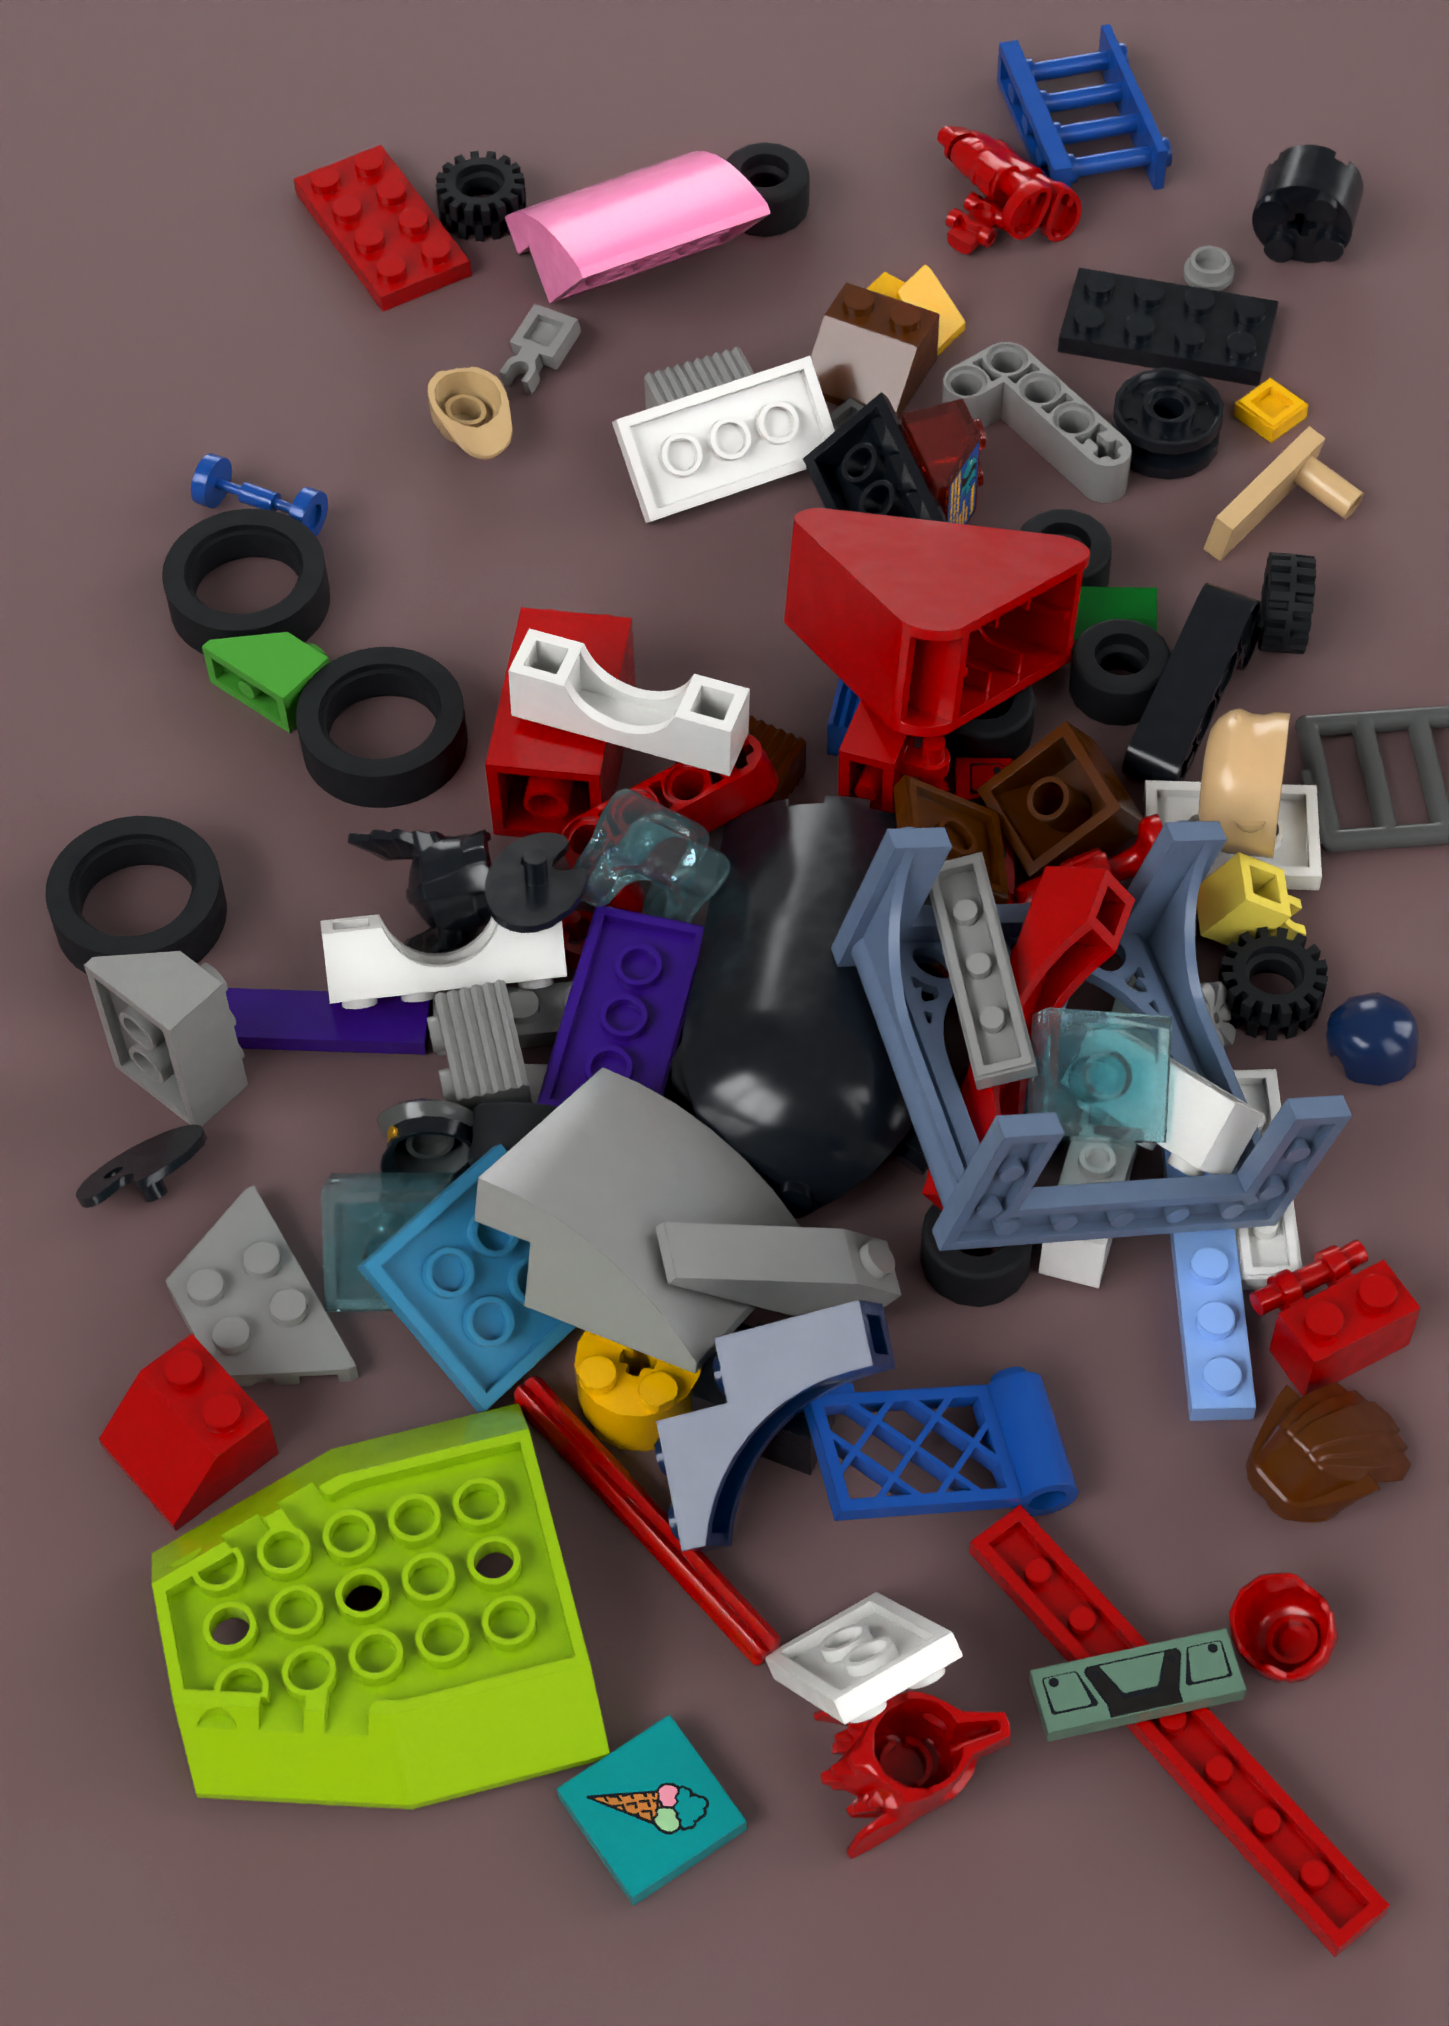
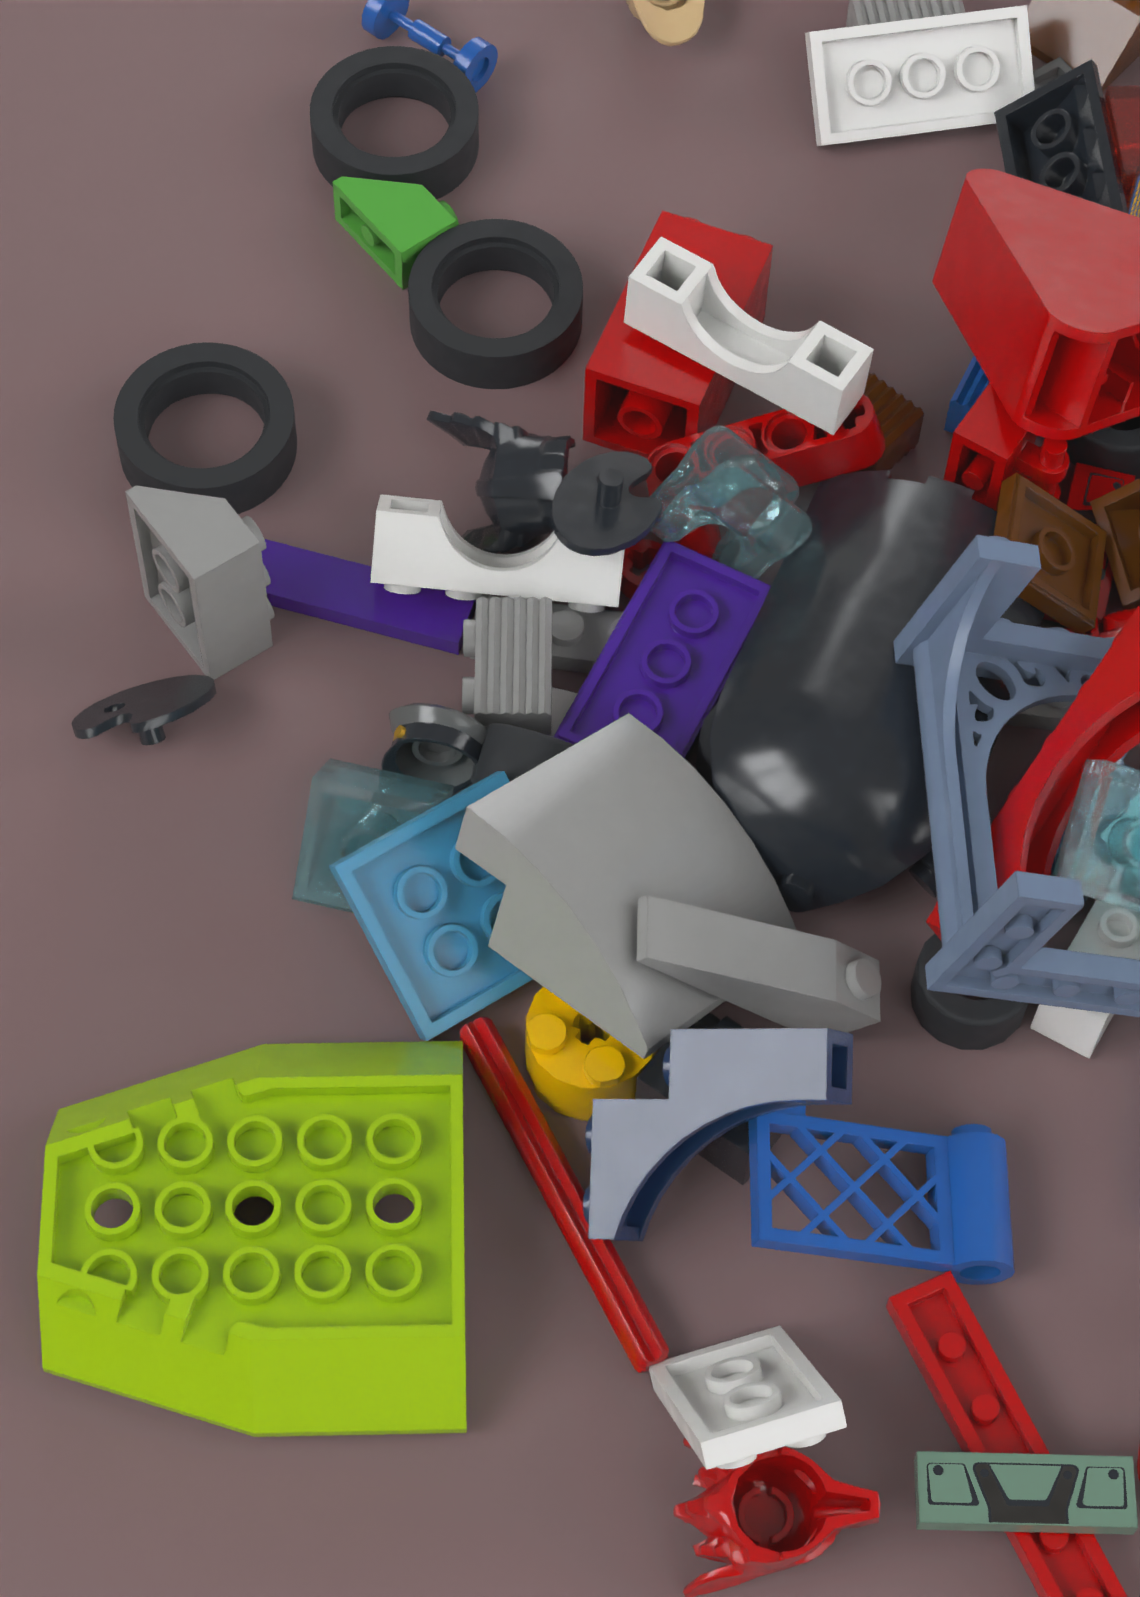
camera: 10 degrees right, 5 degrees up
(187, 1432) = (123, 994): red slope -> none
(255, 1303) = (223, 875): light grey wing -> none
(651, 1809) = (495, 1497): teal tile -> none
(981, 973) = (1042, 705): light grey tile -> none

